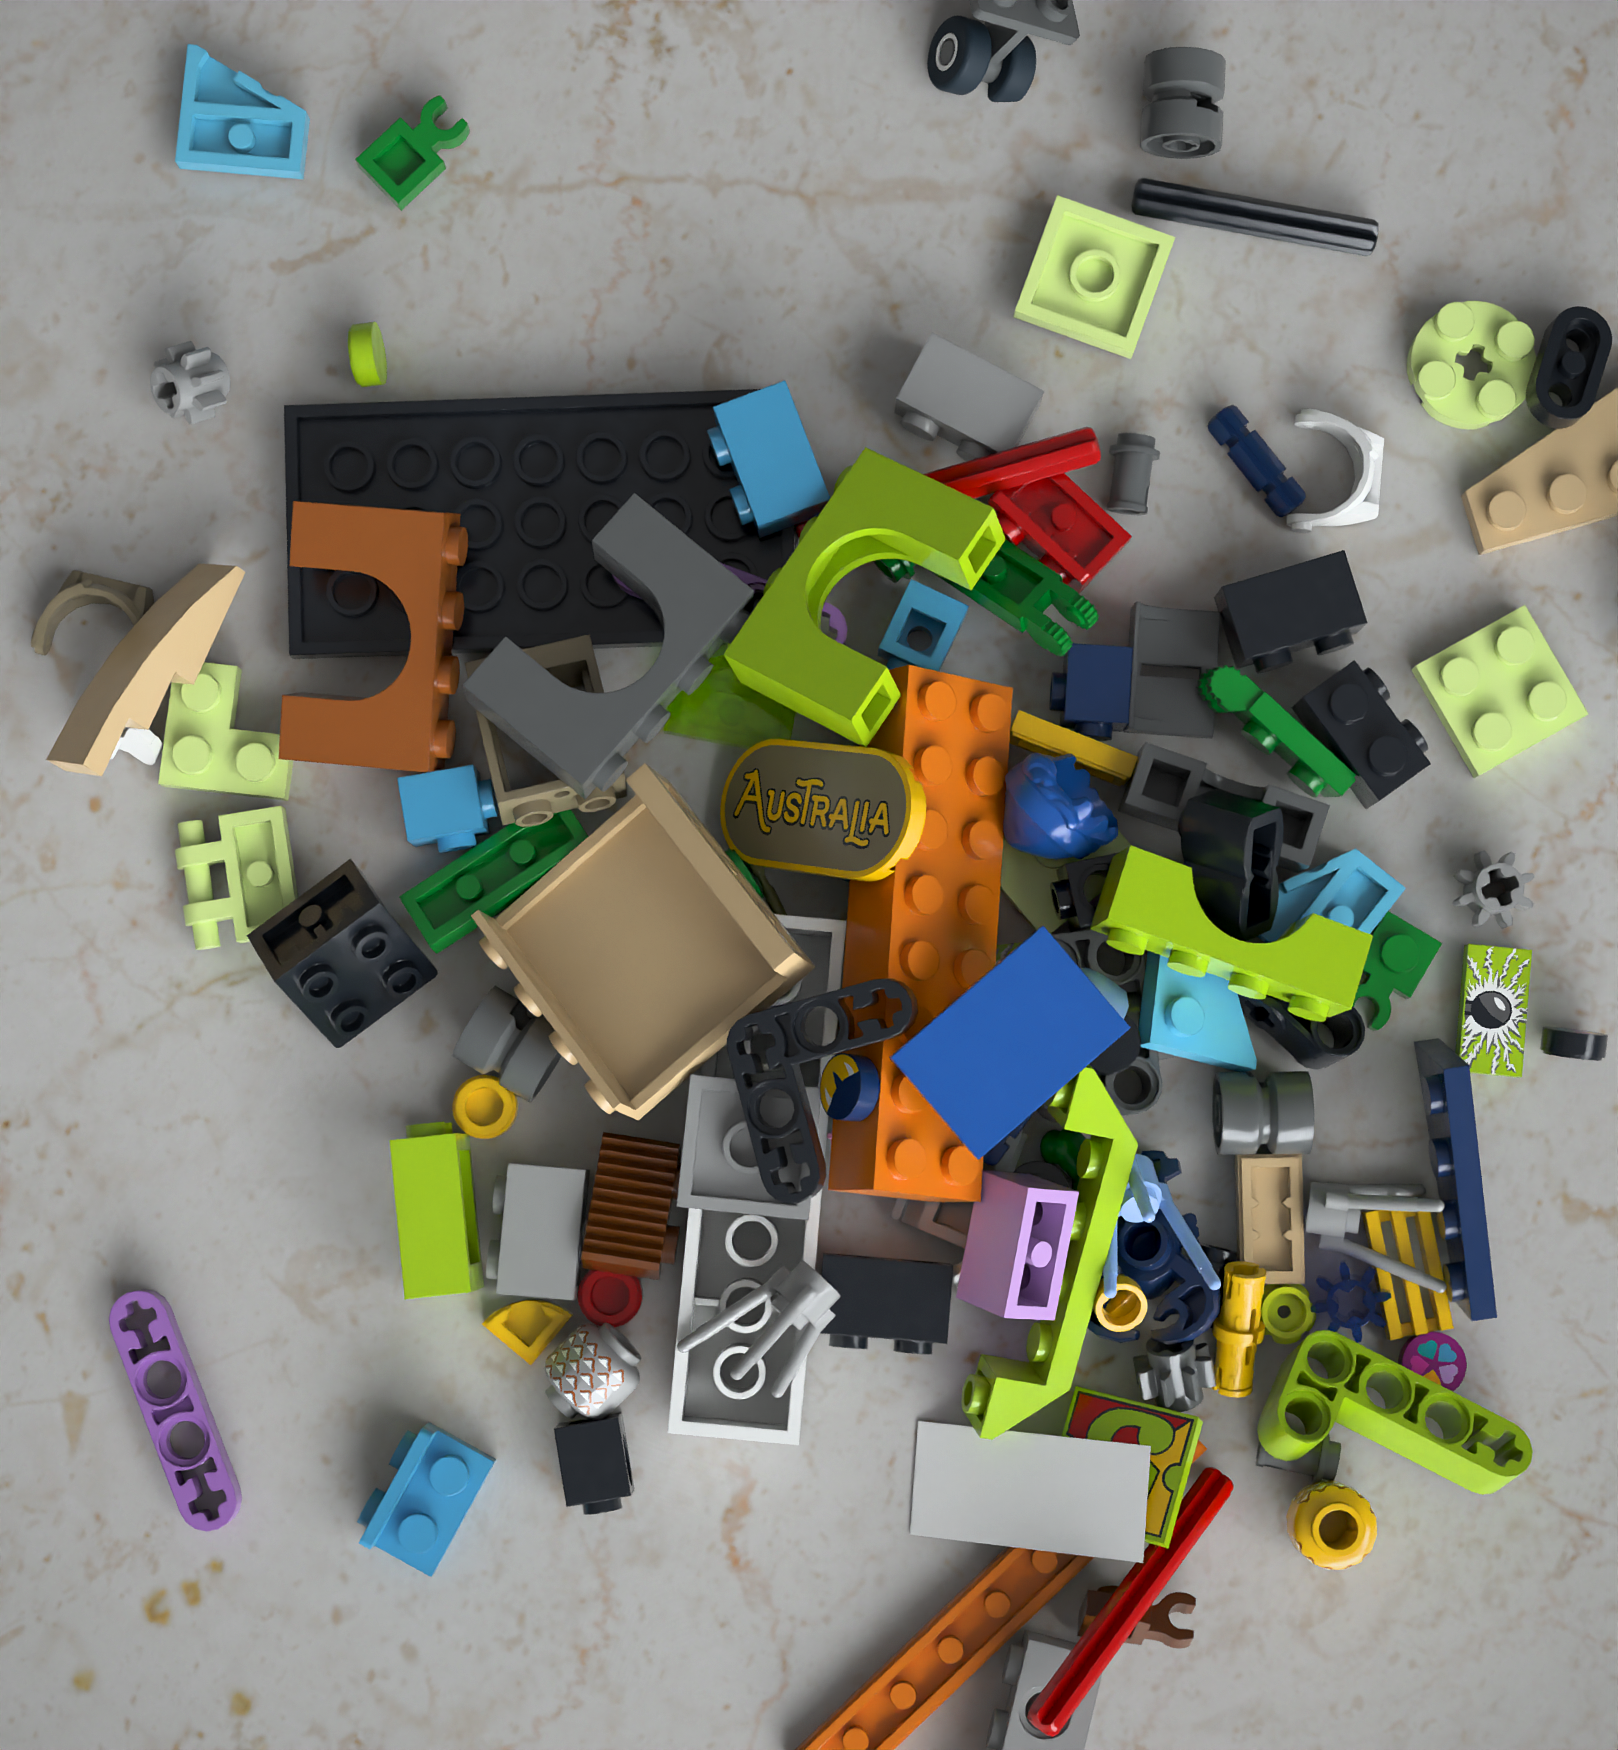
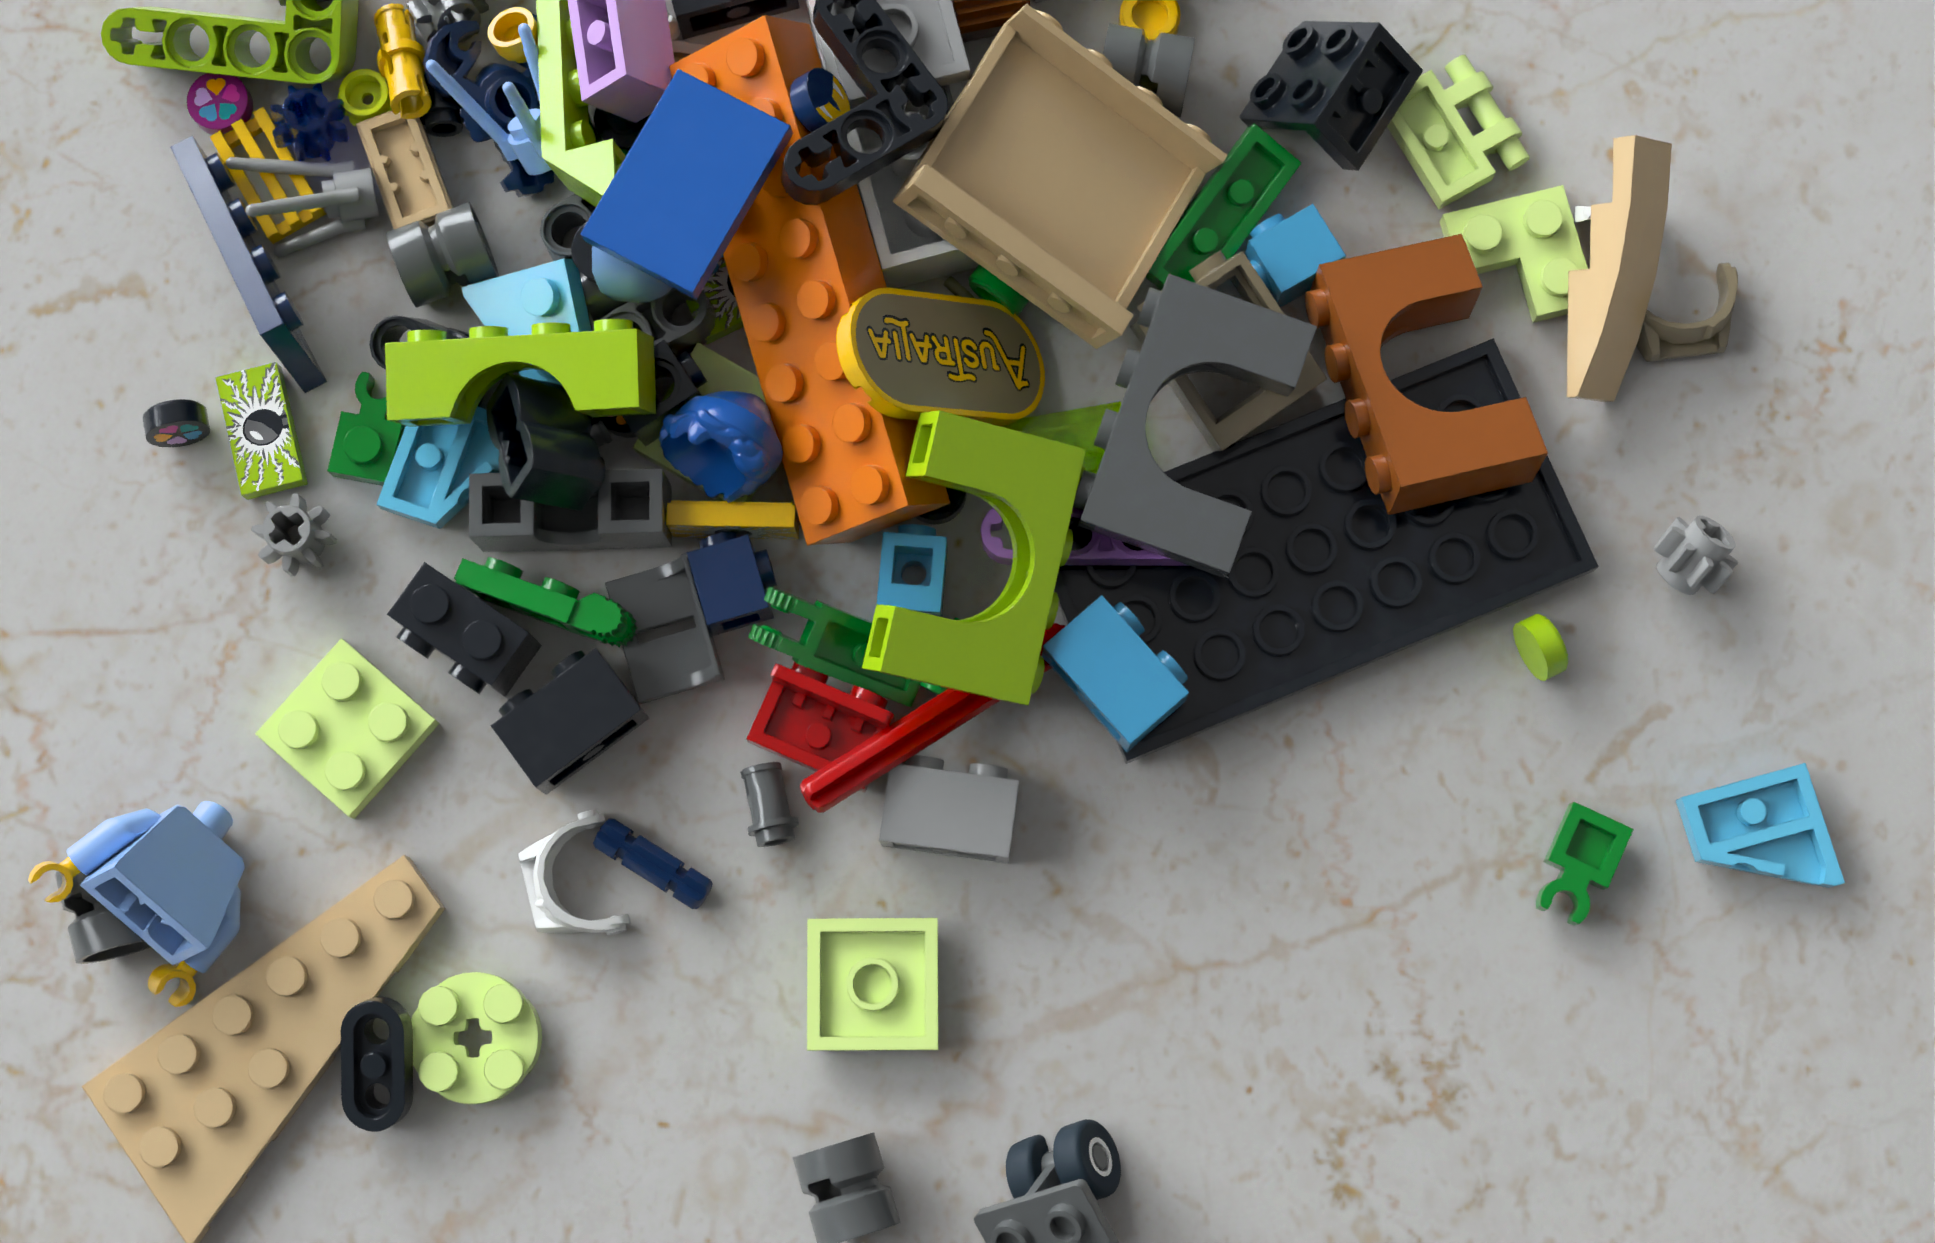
camera: 165 degrees right, 5 degrees down
(1255, 217) = (736, 1107): black axle -> none

